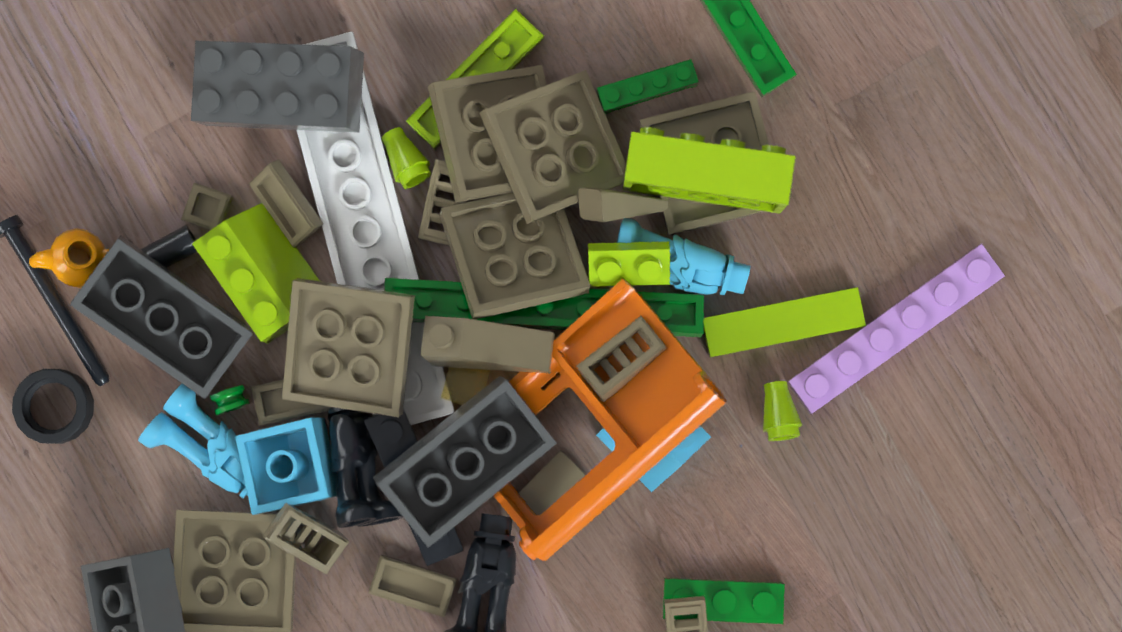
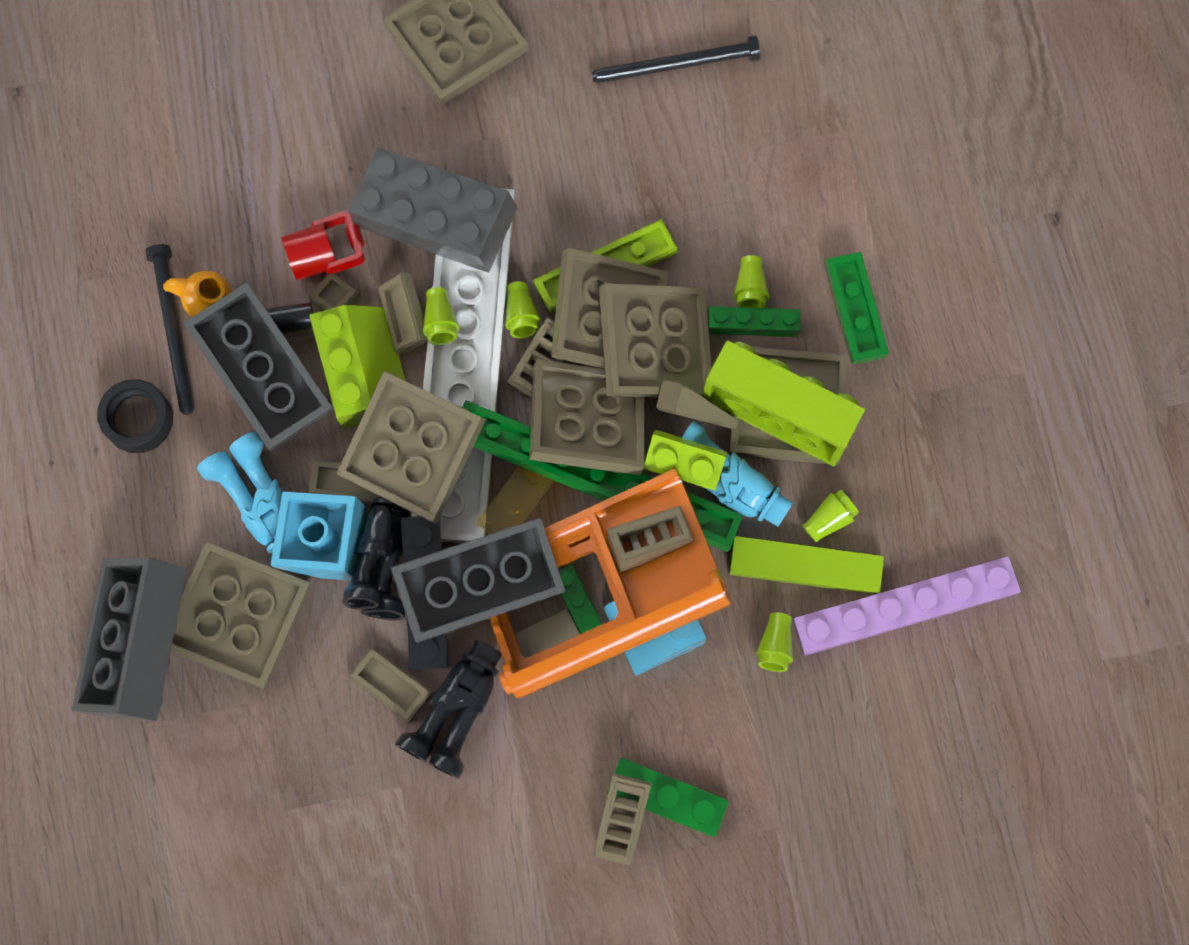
camera: 15 degrees right, 10 degrees down
(166, 170) = (311, 250): none -> red piece
(230, 400) = (290, 463): green bush -> none
(326, 199) = (440, 320): none -> lime cone
(327, 551) = (327, 624): dark tan slope -> none
(485, 345) = (531, 487): dark tan slope -> none
(570, 440) = (578, 601): none -> green piece
(632, 49) = (751, 284): none -> lime cone
(792, 264) = (831, 516): none -> lime cone

